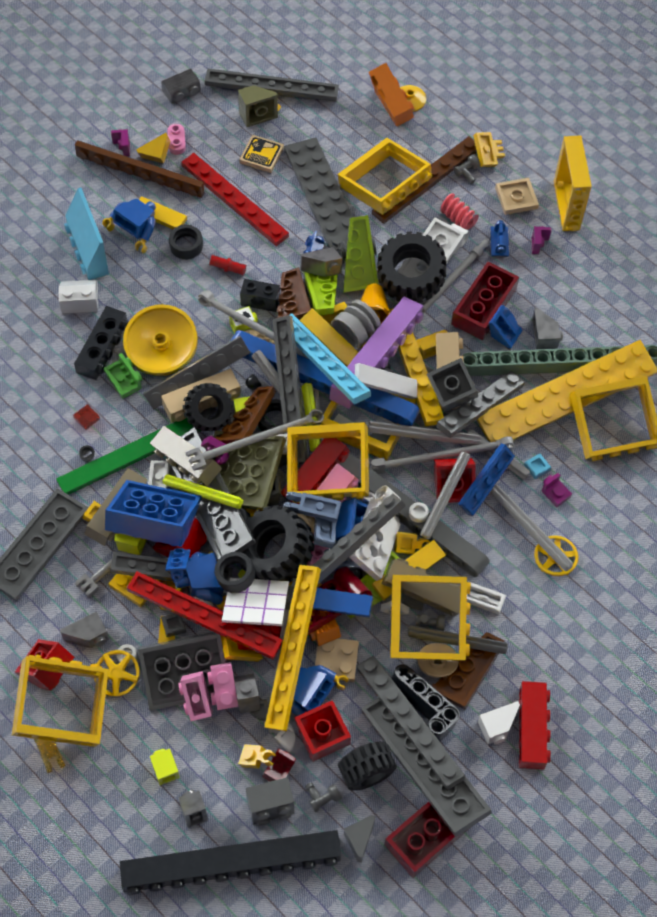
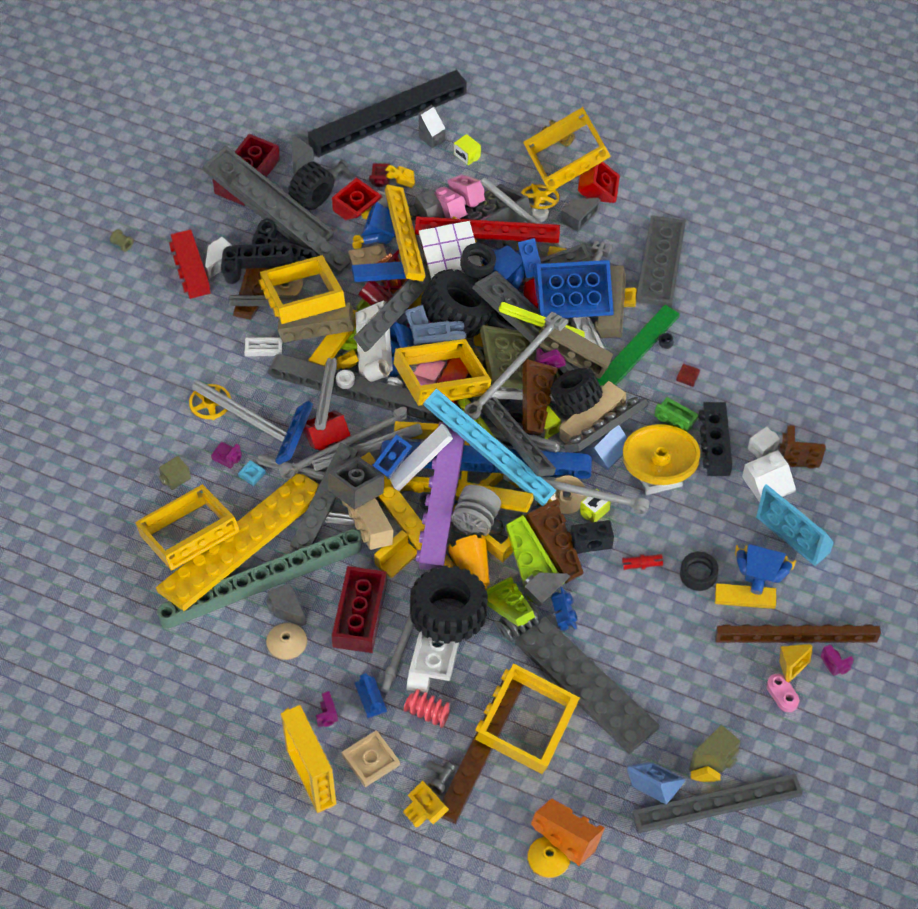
camera: 160 degrees right, 5 degrees down
(42, 296) = (800, 453): none -> reddish brown bracket
(62, 323) = (763, 443): none -> white brick
(136, 613) = (490, 186): none -> light grey bar
(181, 86) = (818, 758): flat silver brick -> none
(235, 199) = (679, 643): red plate -> none
(261, 153) = (679, 709): tile -> none
(270, 801) = (375, 145): dark grey brick -> none
(309, 106) = (655, 781): none -> medium blue slope
(412, 387) = (392, 456): none -> blue brick
(461, 682) = (253, 256): none -> black beam
(504, 327) = (328, 592): blue slope -> none
(560, 312) = (288, 648): none -> tan dish
(602, 789) = (121, 240): none -> olive bush
(612, 485) = (174, 473): none -> olive brick

